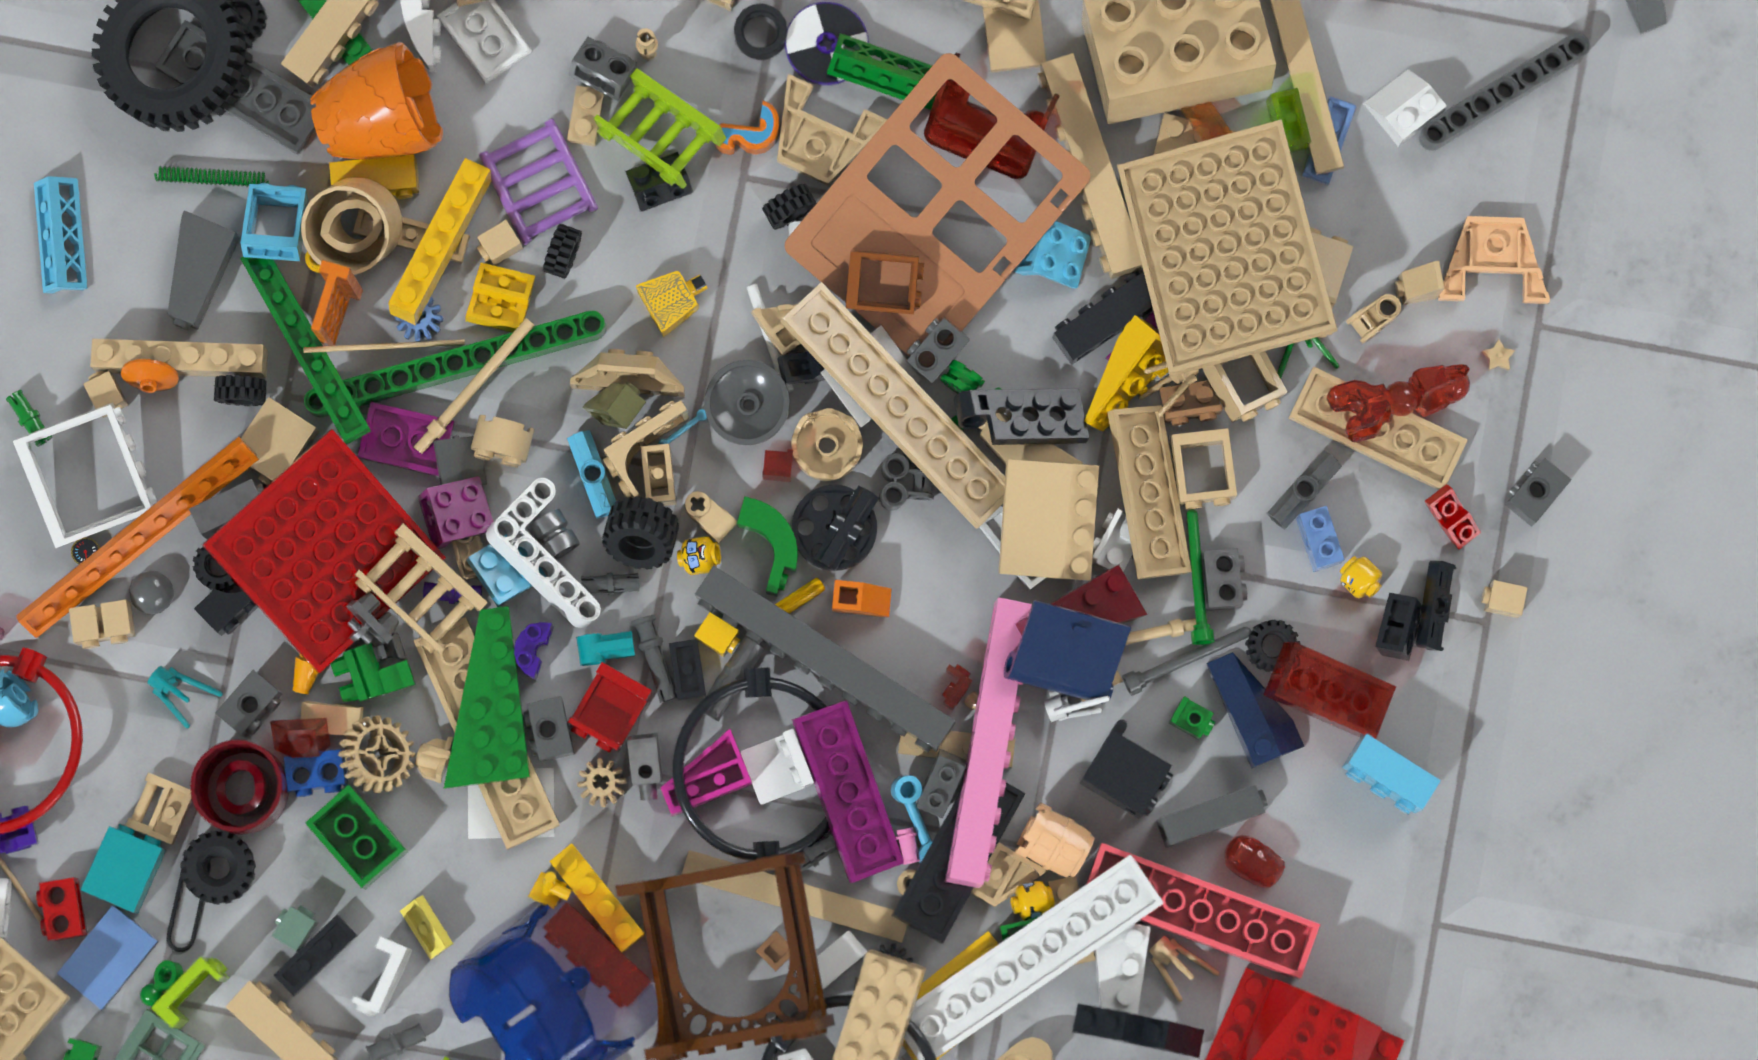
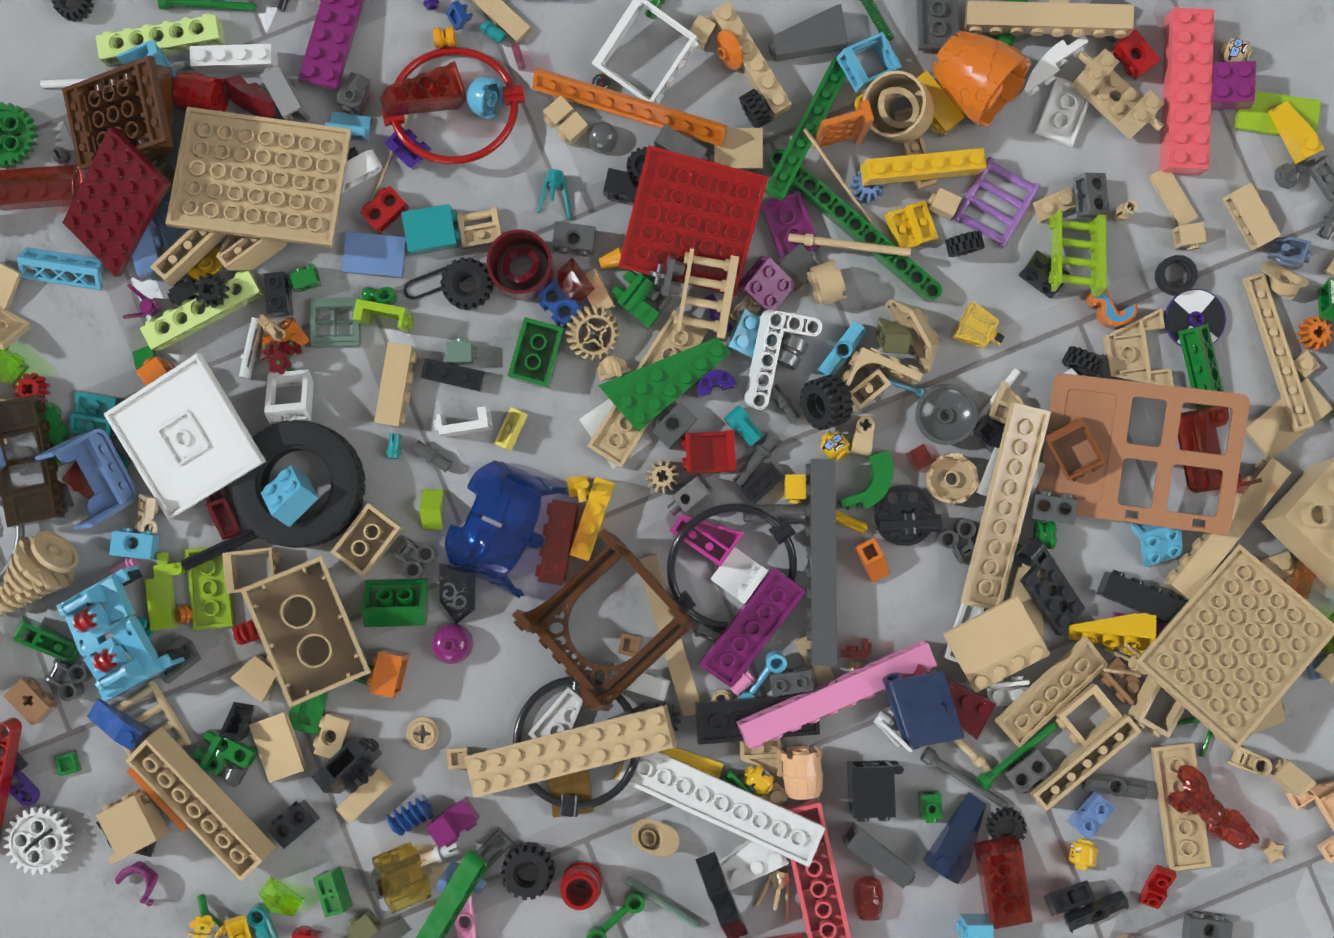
camera: 60 degrees right, 5 degrees up
(1253, 507) = (1083, 763): none -> tan brick

